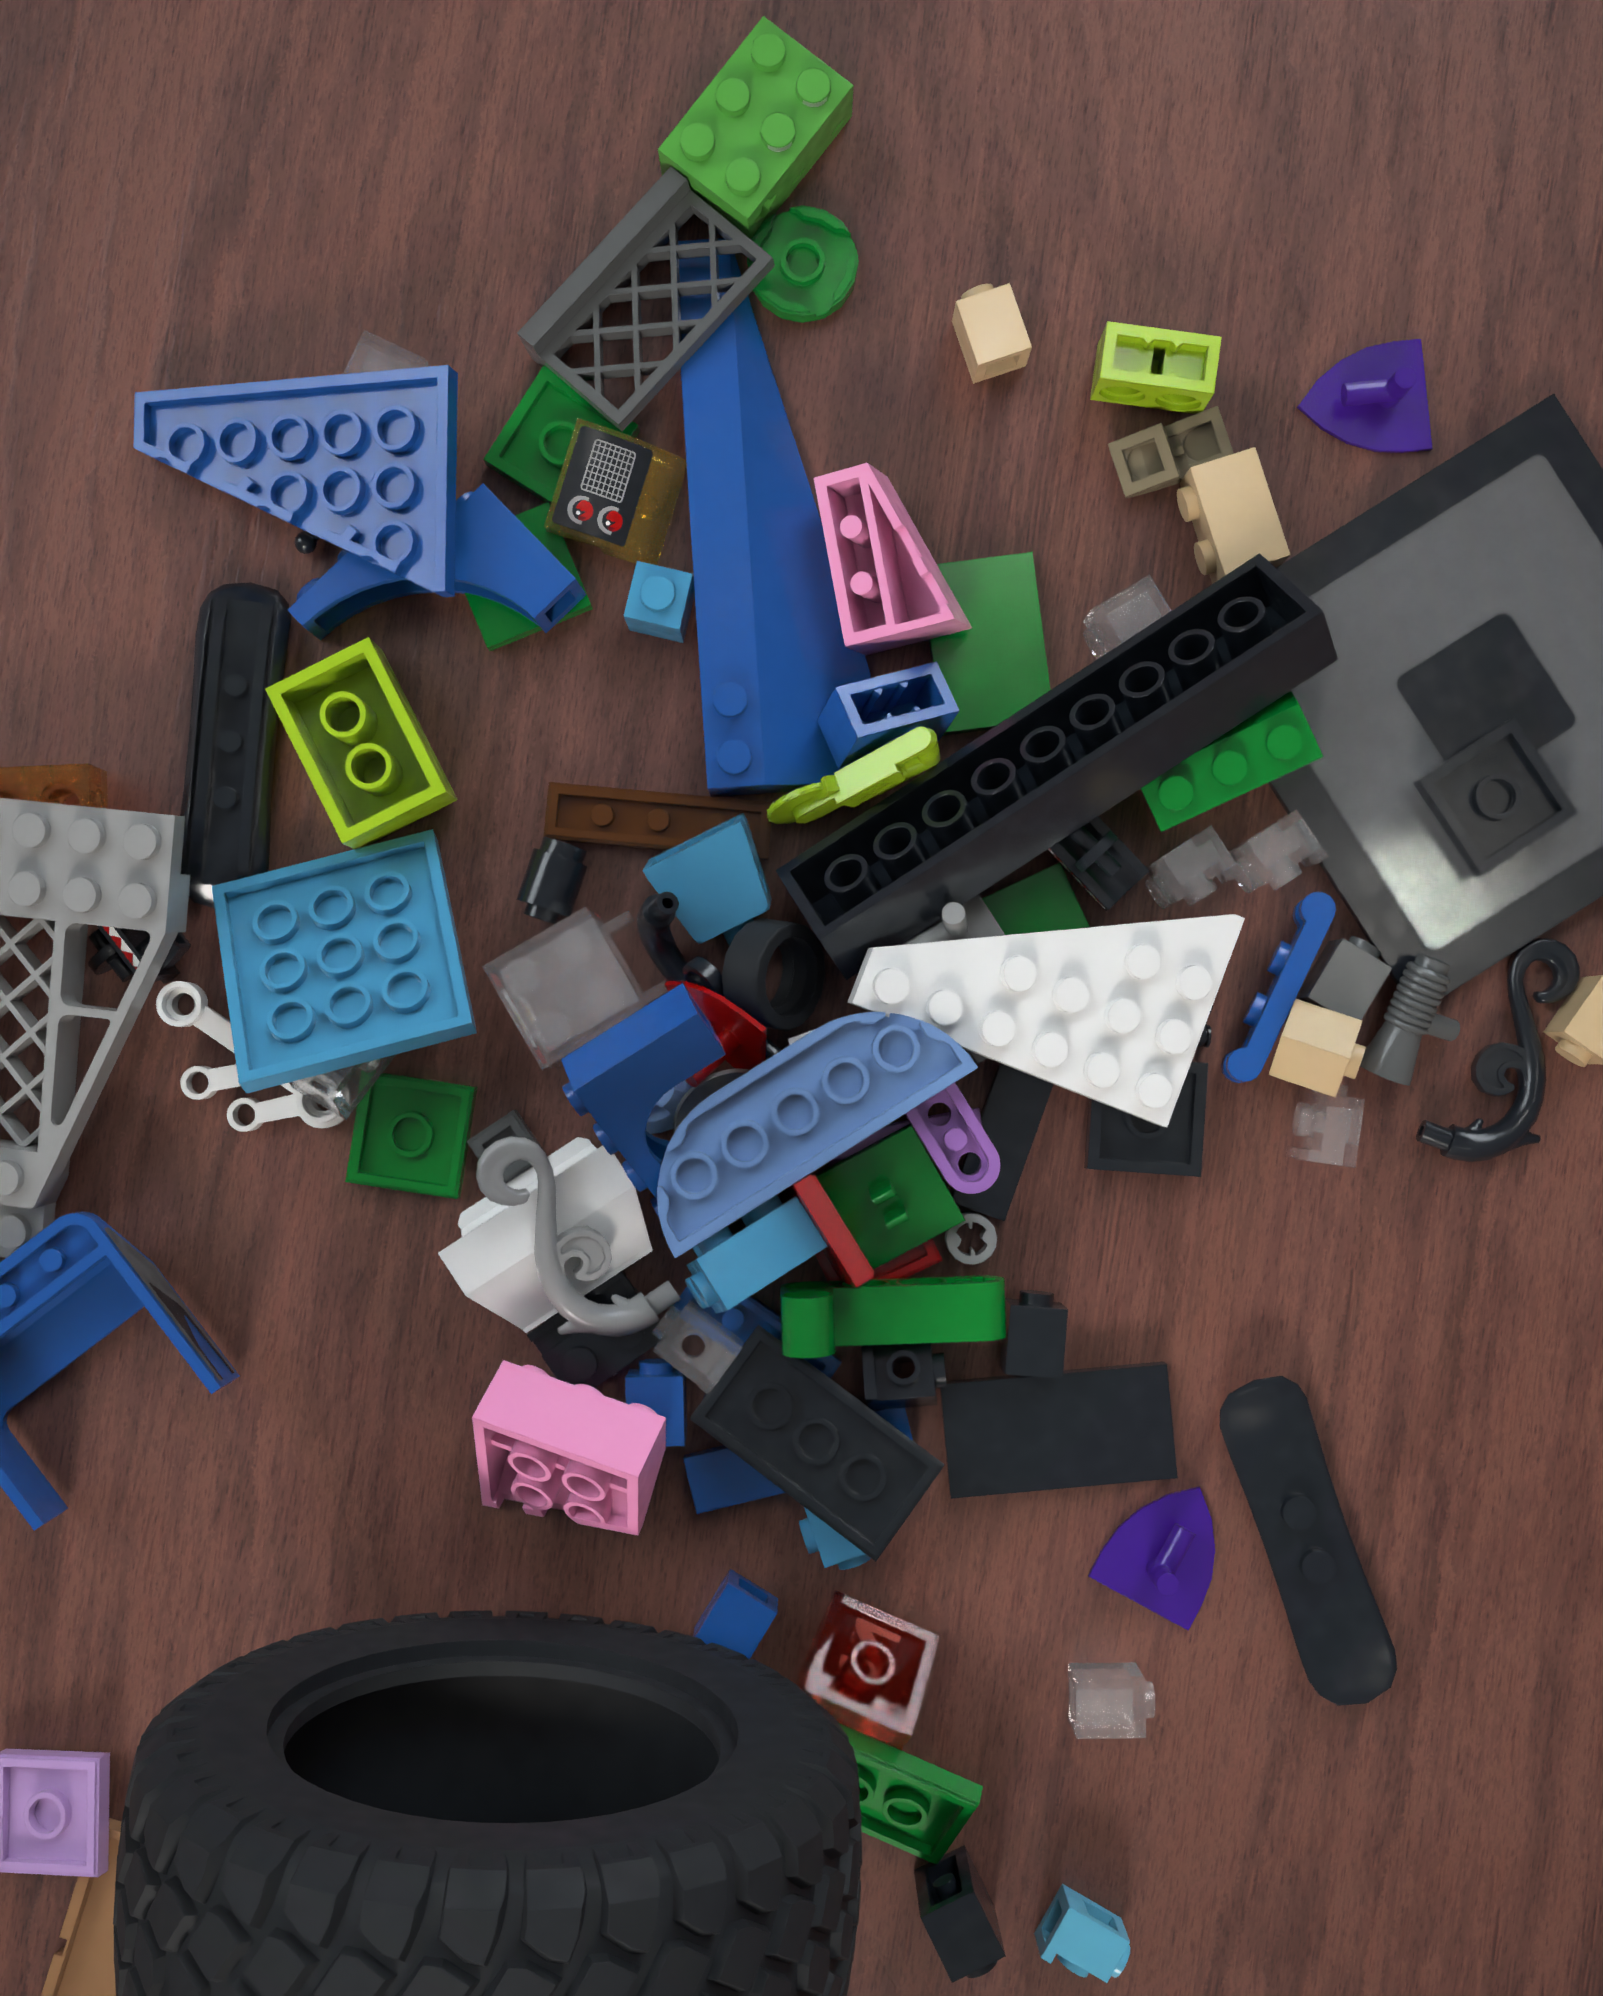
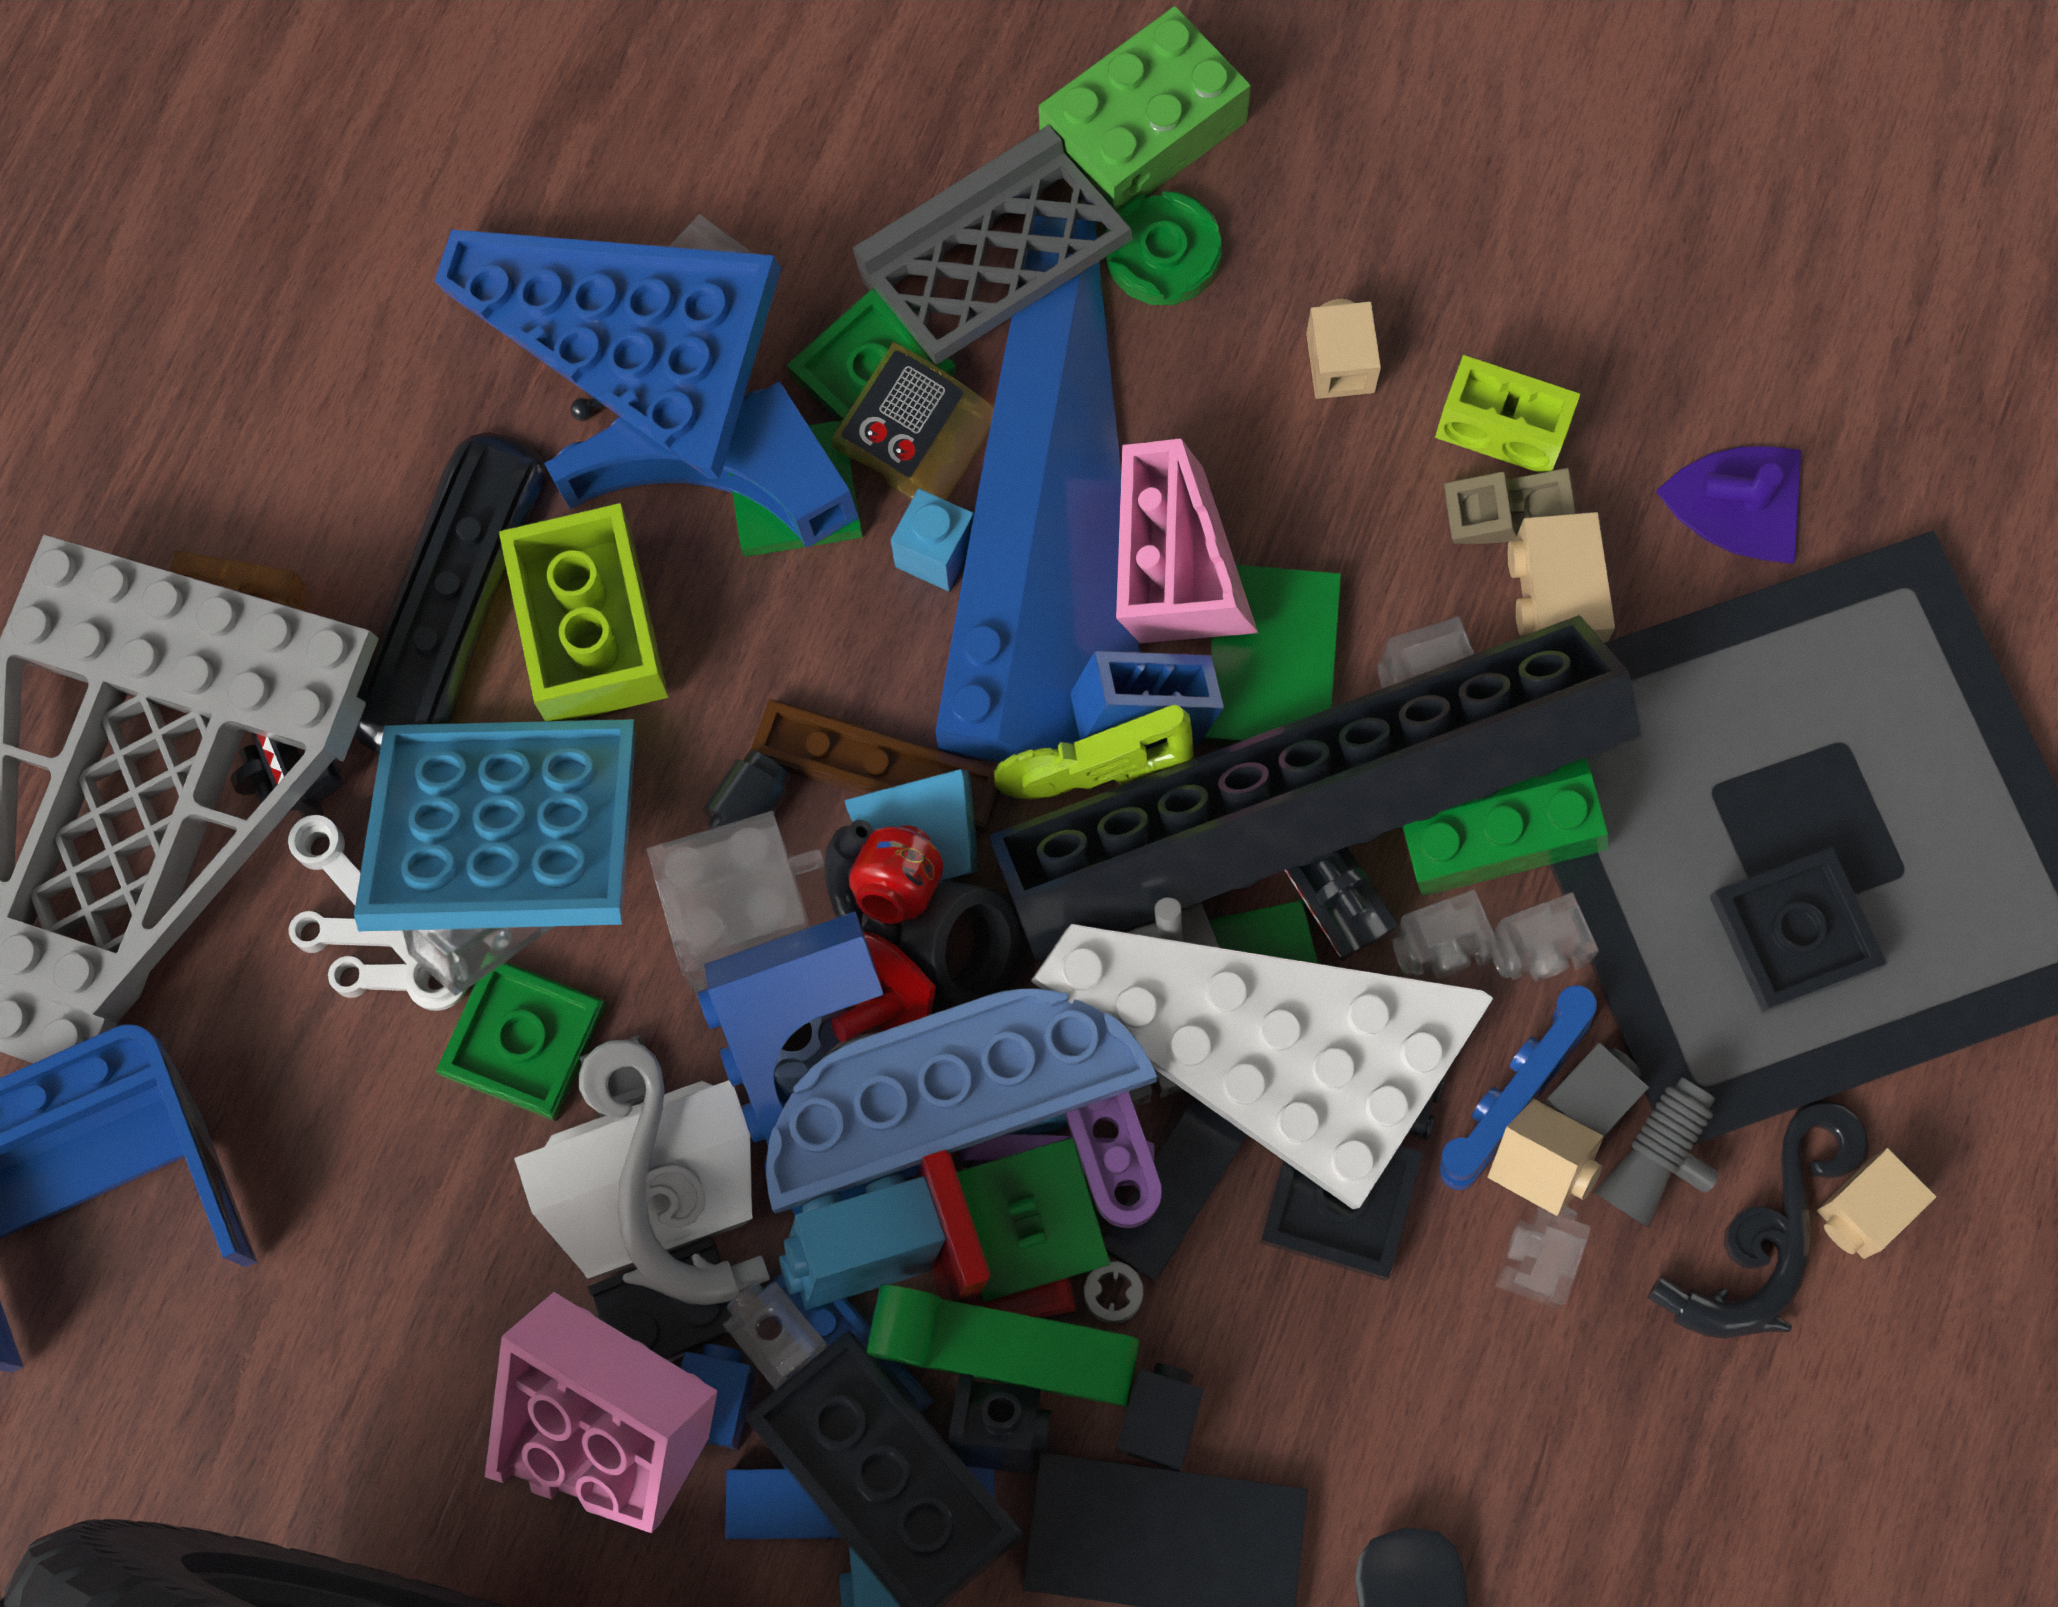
camera: 15 degrees right, 15 degrees down
(706, 932) = (896, 874): none -> red head

